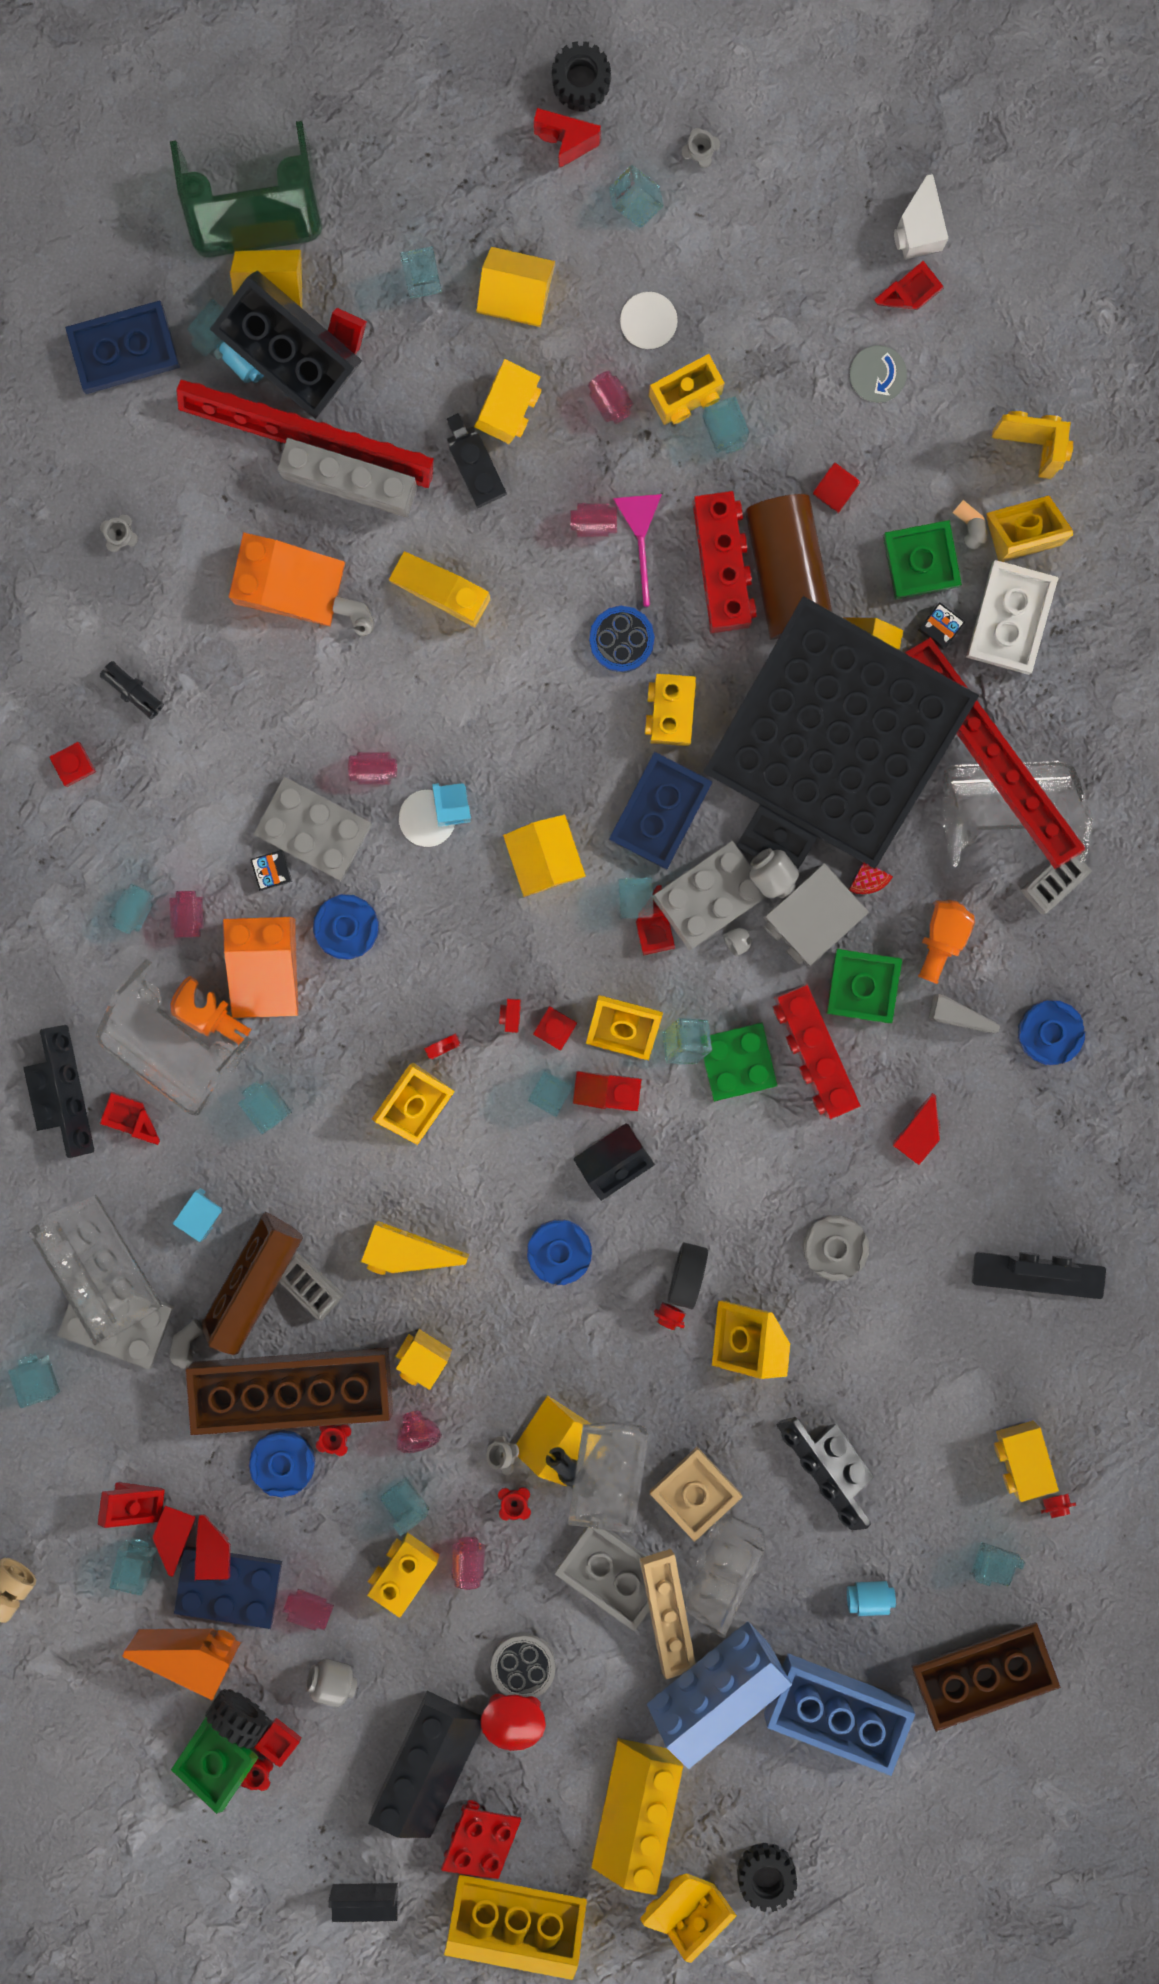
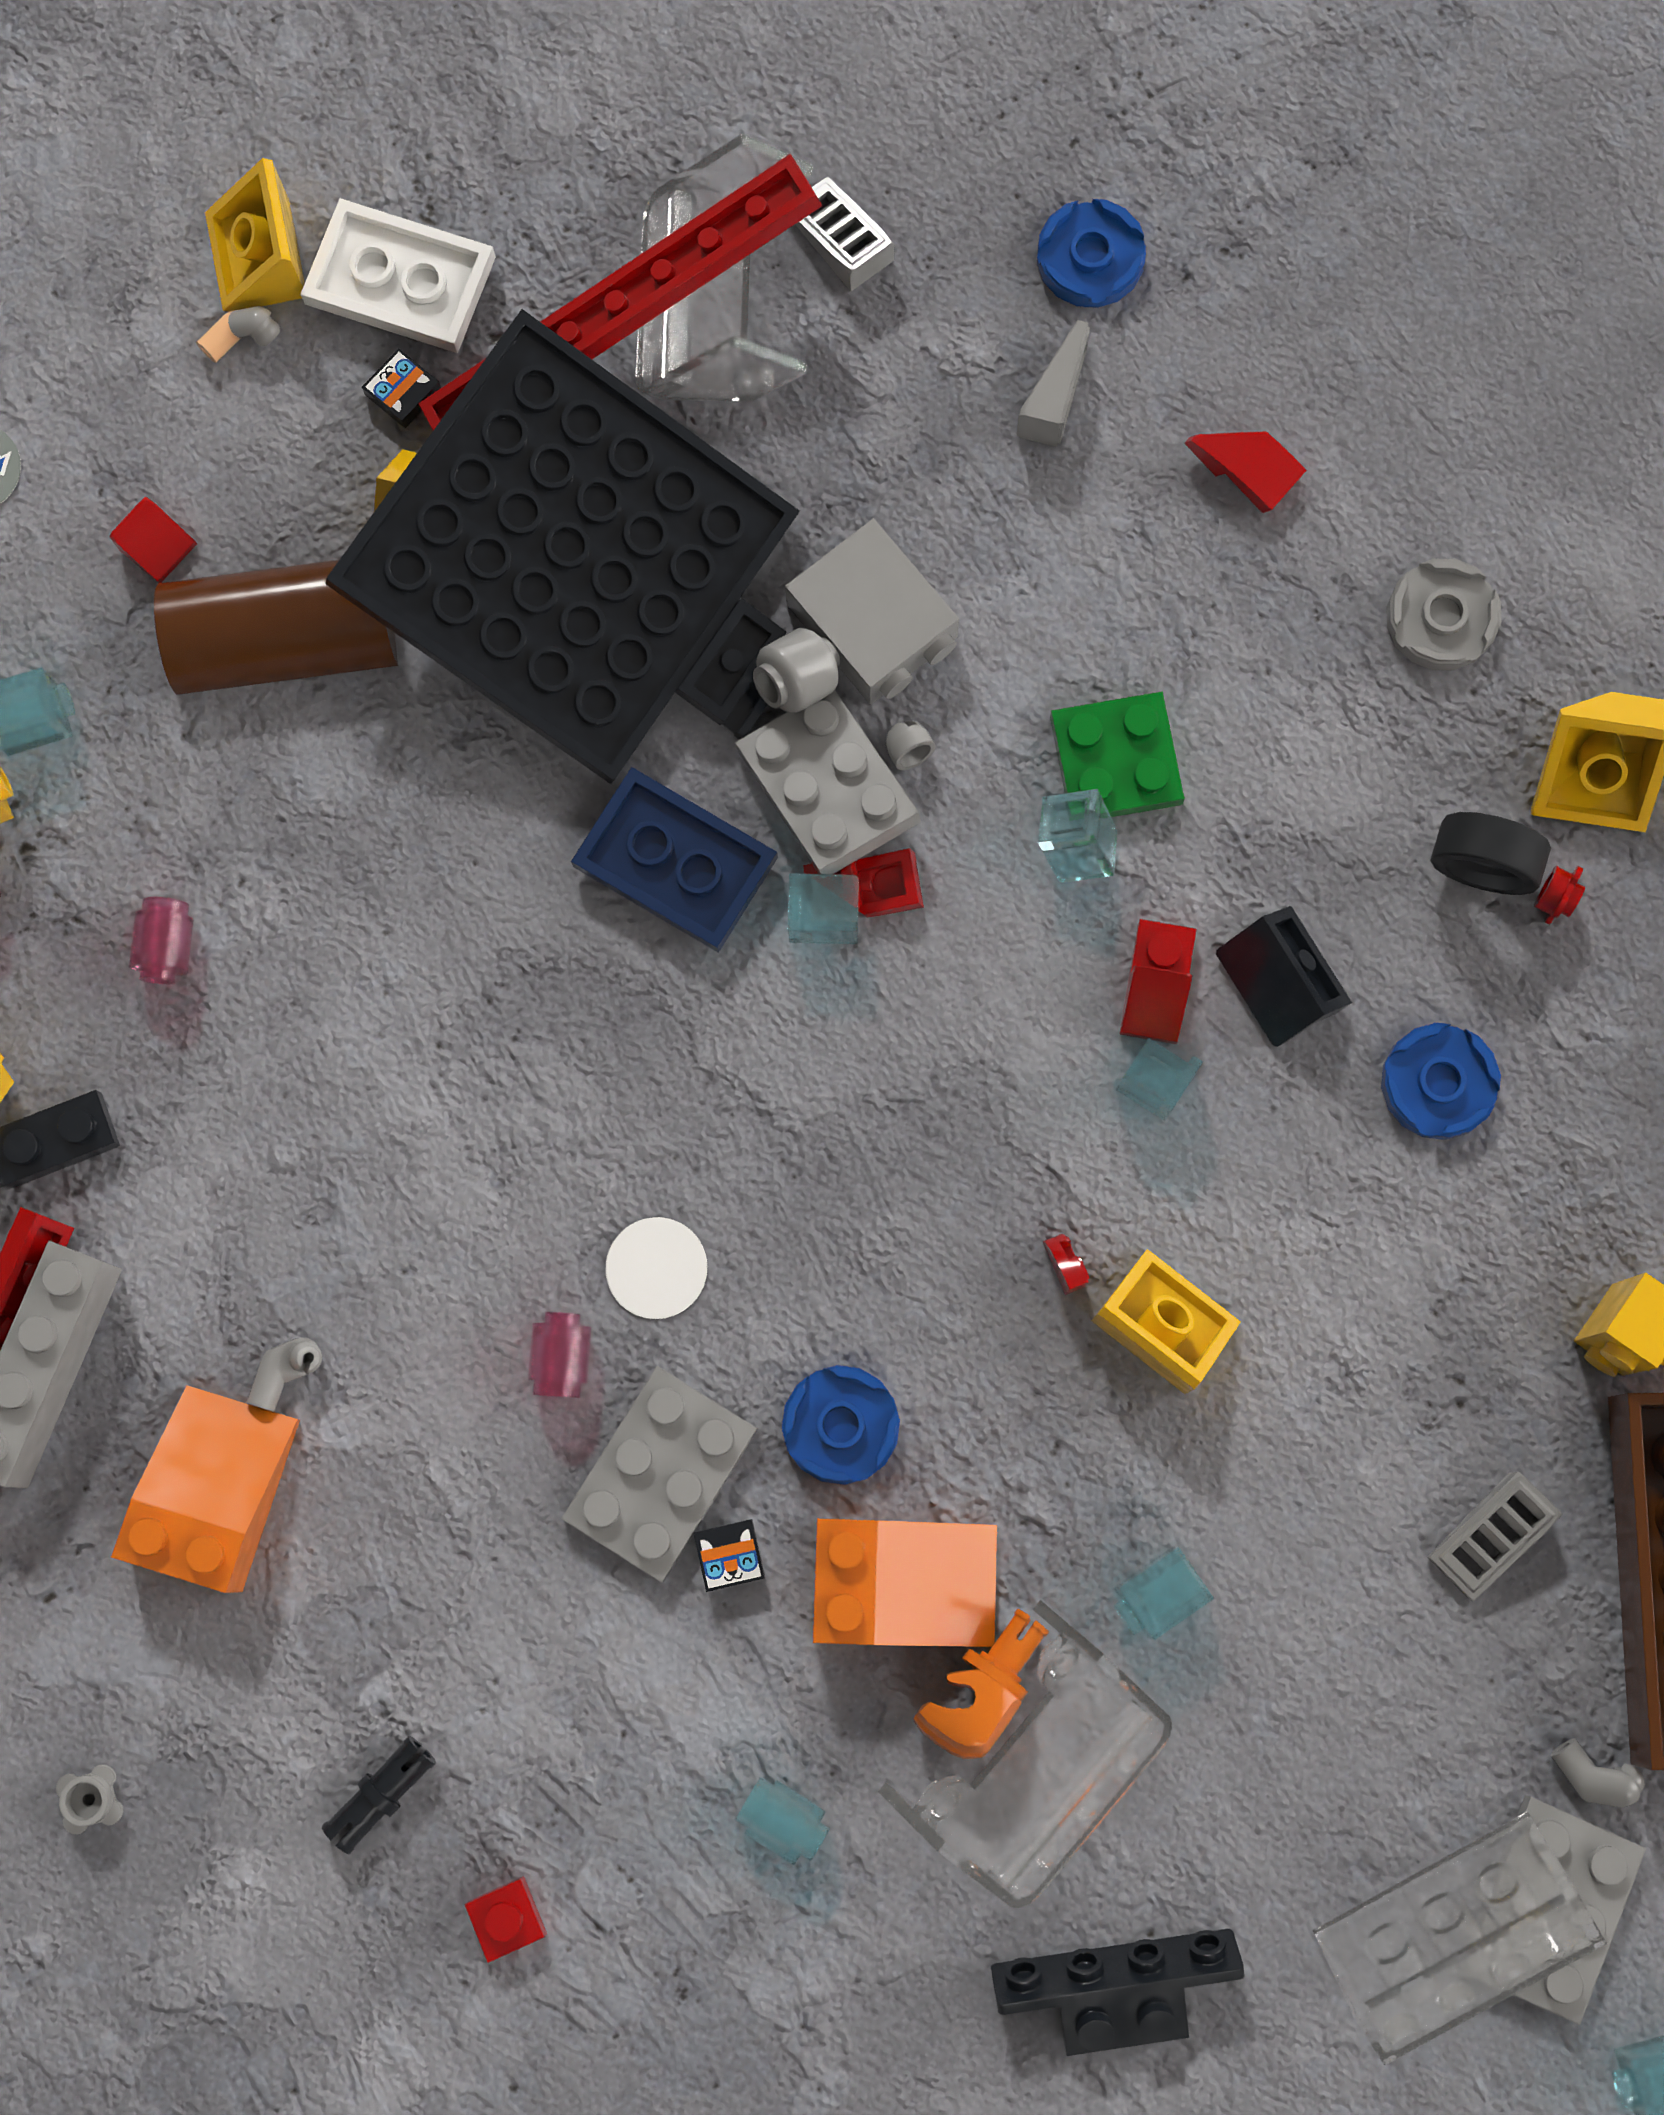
camera: 80 degrees left, 10 degrees down
(130, 1117) = (1169, 1856): red slope -> none
(186, 914) = (799, 1717): clear pink brick -> none
(198, 1216) = (1360, 1731): medium azure panel -> none
(250, 1284) = (1490, 1643): reddish brown brick -> none
(402, 1251) = (1436, 1353): yellow slope -> none
(441, 588) = (251, 1214): yellow slope -> none
(451, 804) = (636, 1220): medium azure panel -> none
(510, 1015) = (1017, 1136): red plate -> none
(544, 855) = (738, 1066): yellow slope -> none
(555, 1028) = (1043, 1064): red plate -> none
(621, 639) = (372, 909): tile -> none
(624, 1027) = (1047, 942): yellow slope -> none
(639, 513) = (161, 870): dark pink piece -> none
(672, 709) = (501, 829): yellow brick -> none
(722, 561) = (257, 729): red brick -> none
(817, 1052) = (1106, 621): red brick -> none
(863, 986) = (997, 541): green plate -> none
(869, 880) = (817, 524): red tile -> none
(922, 559) = (288, 410): green plate -> none
(948, 936) = (922, 394): orange piece -> none
(1039, 1275) = (1497, 291): black bracket -> none
(1044, 431) = (104, 192): yellow bracket -> none

